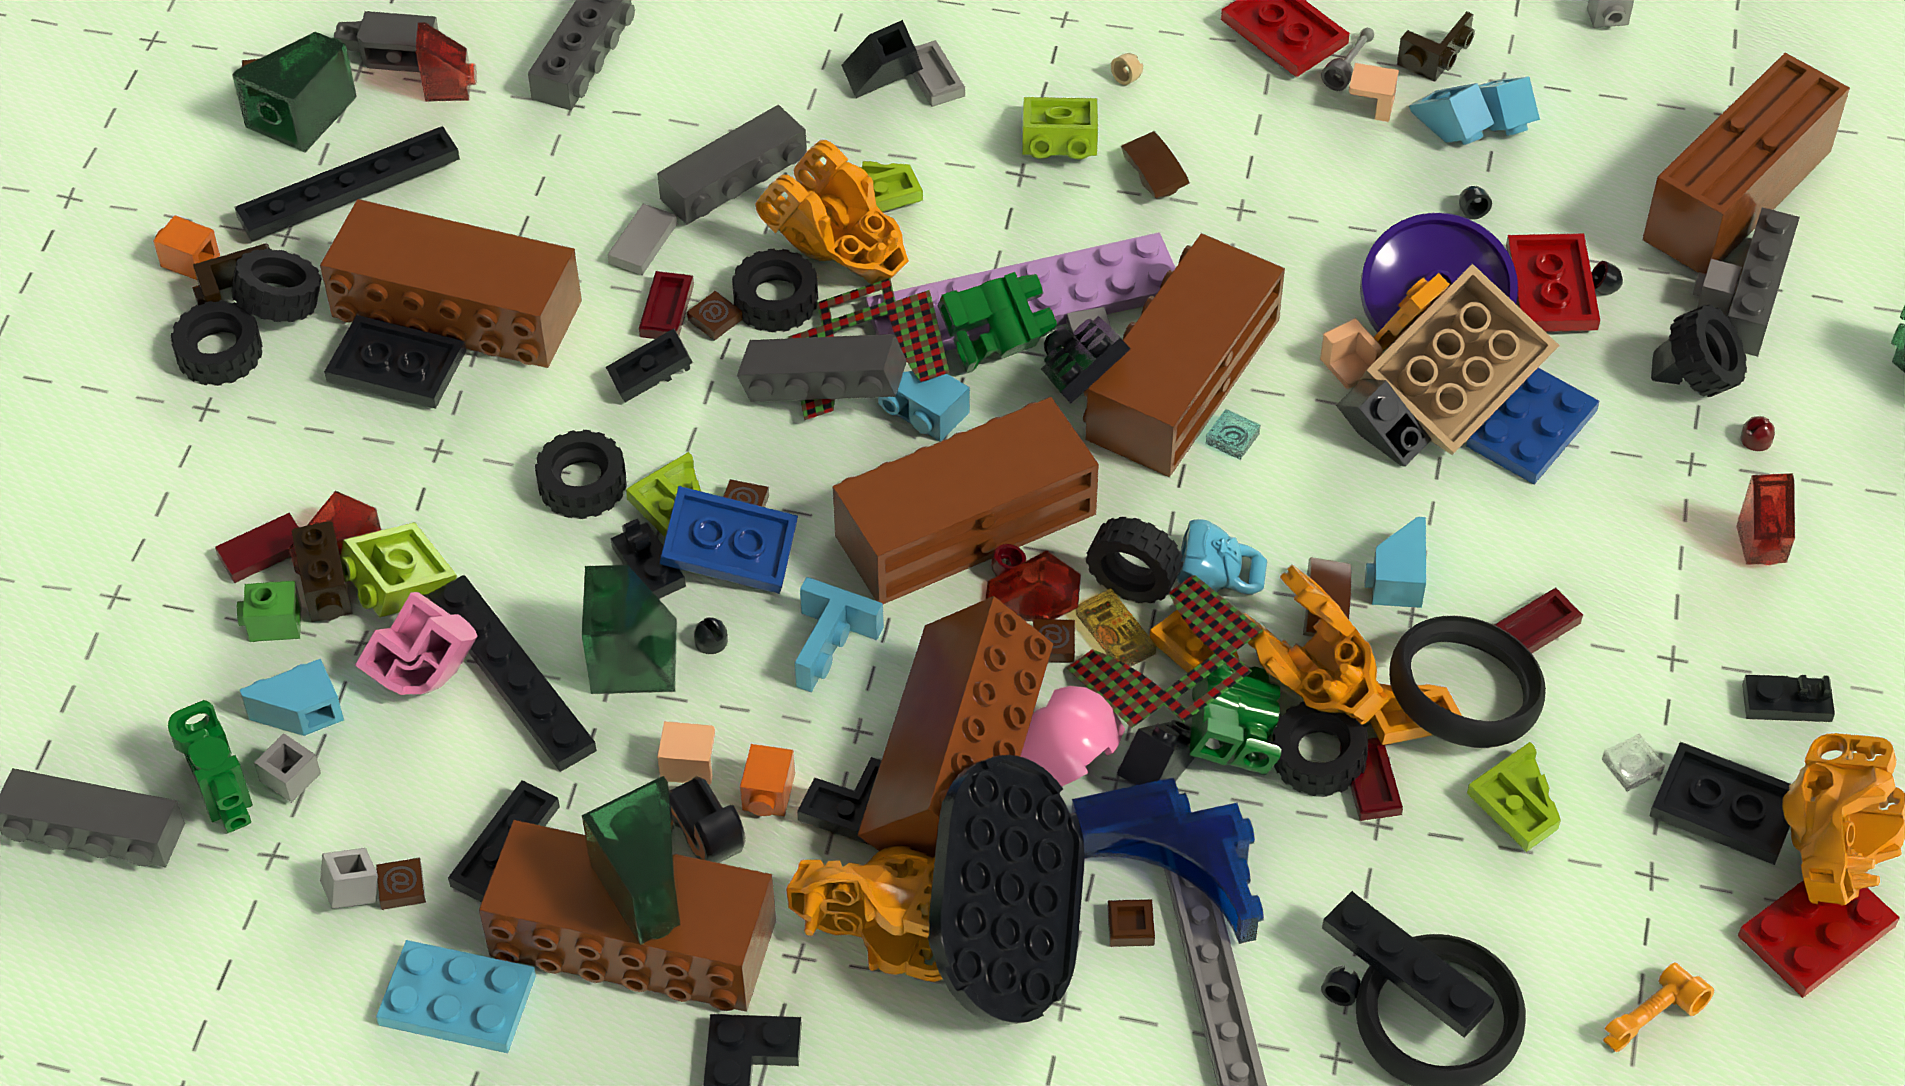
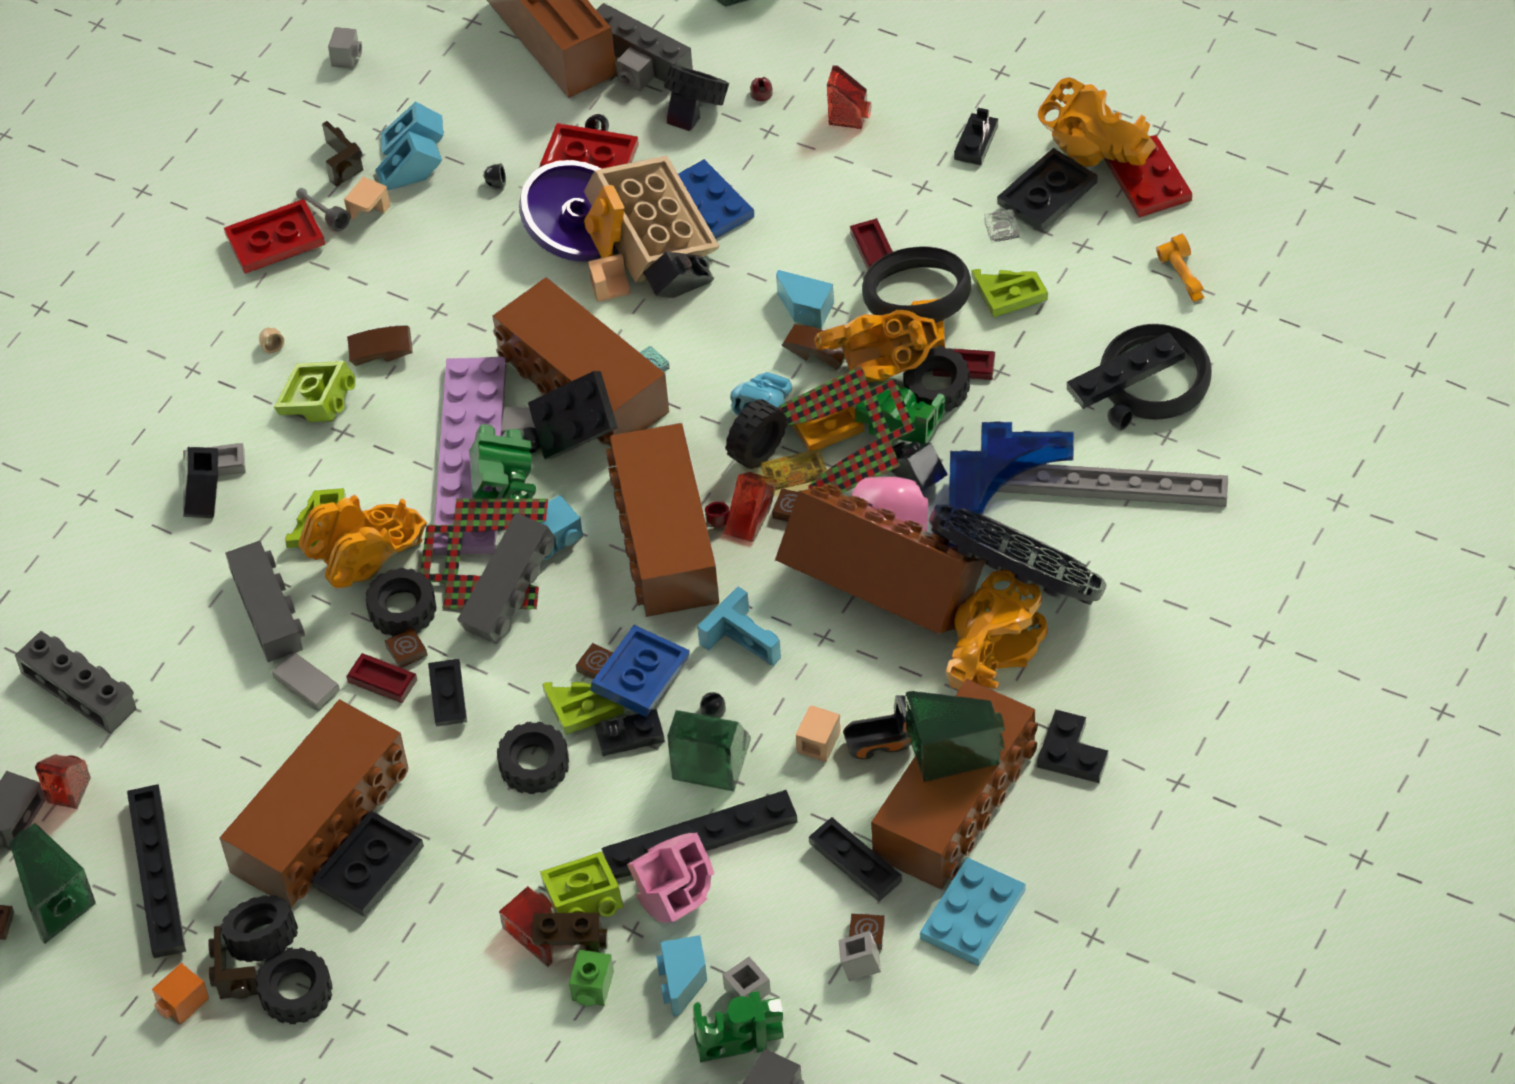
camera: 70 degrees left, 0 degrees up
(257, 548) = (519, 982): dark red tile -> none
(767, 780) = (858, 690): orange brick -> none
(838, 807) = (898, 640): black plate -> none
(1131, 923) = (1035, 516): reddish brown tile -> none

